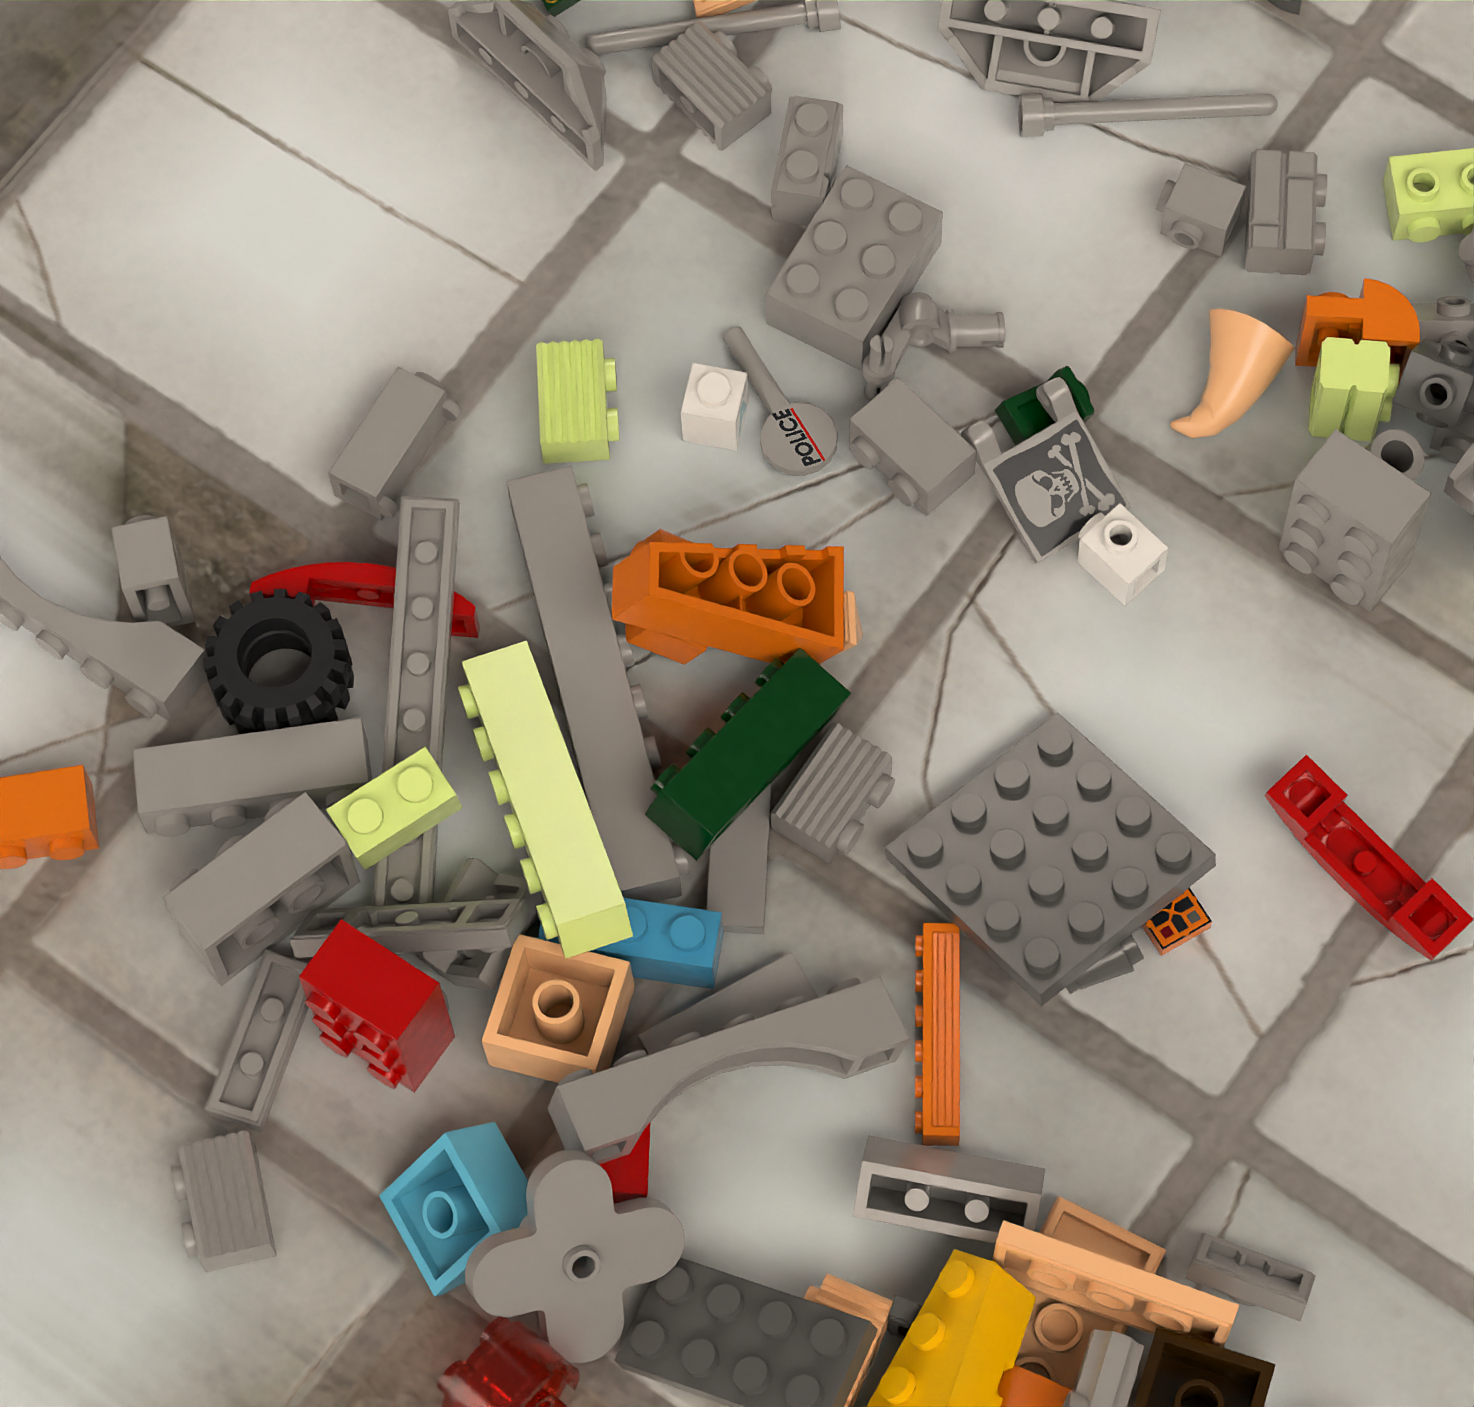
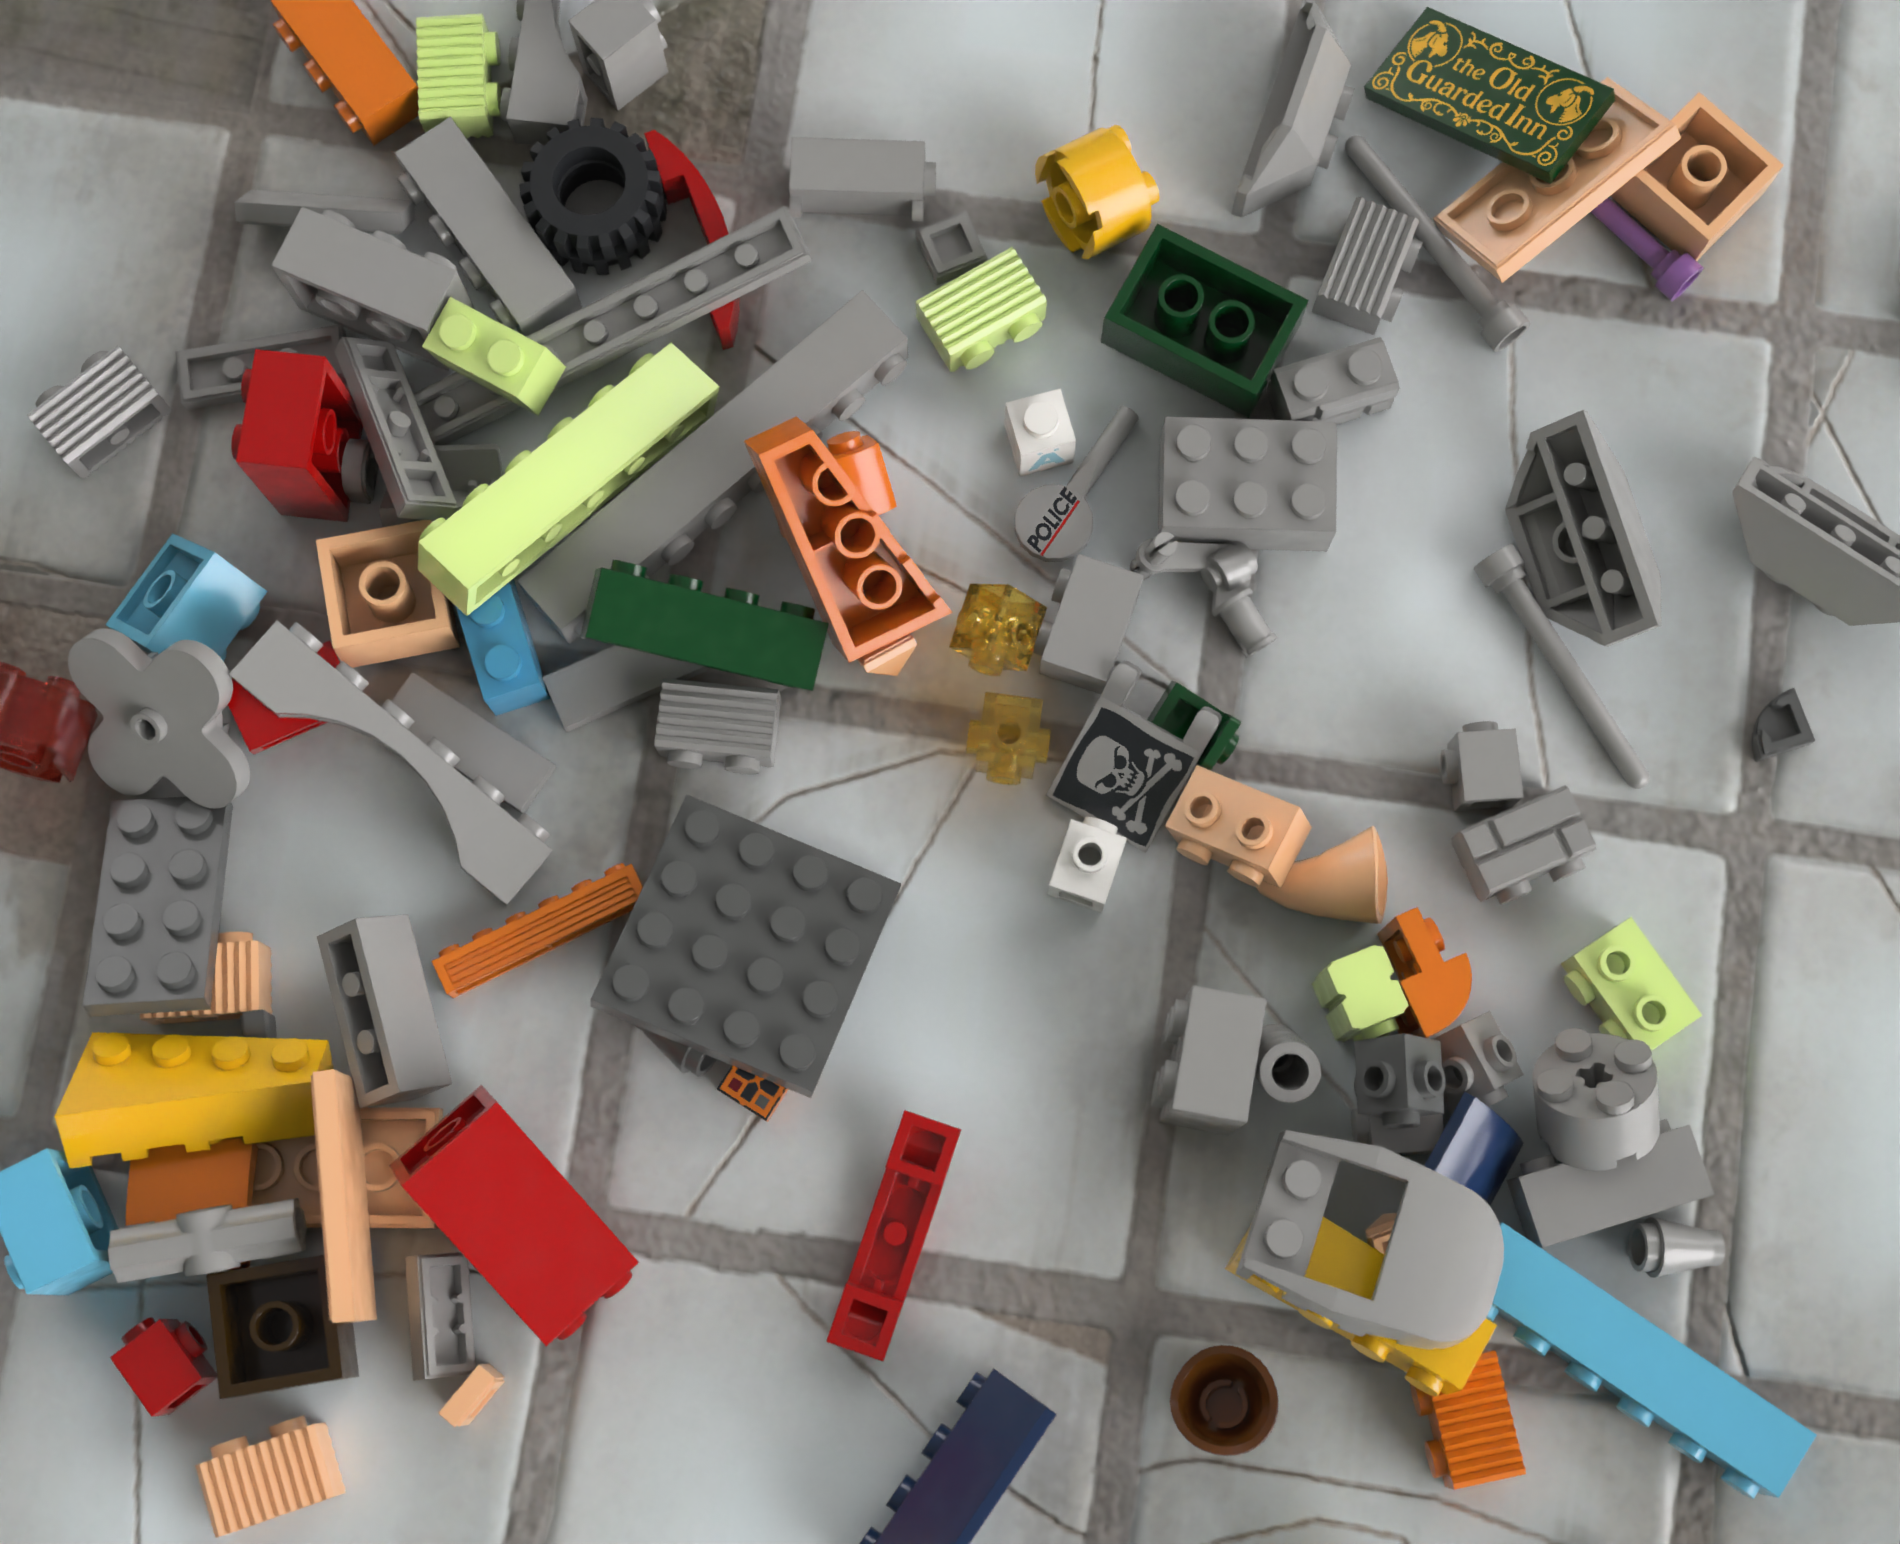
camera: 60 degrees right, 10 degrees up
(76, 729) = (456, 73): none -> yellowish green brick
(145, 912) = (366, 213): none -> light grey tile
(496, 404) = (950, 247): none -> light grey tile
(526, 254) = (1096, 191): none -> yellow brick
(691, 228) = (1203, 320): none -> dark green brick
(874, 522) = (997, 628): none -> clear yellow brick
(977, 559) = (1011, 719): none -> clear yellow brick
(1155, 416) = (1237, 828): none -> light nougat brick
(1190, 1162) = (514, 1216): none -> red slope
(1336, 1280) = (472, 1395): none -> light nougat tile

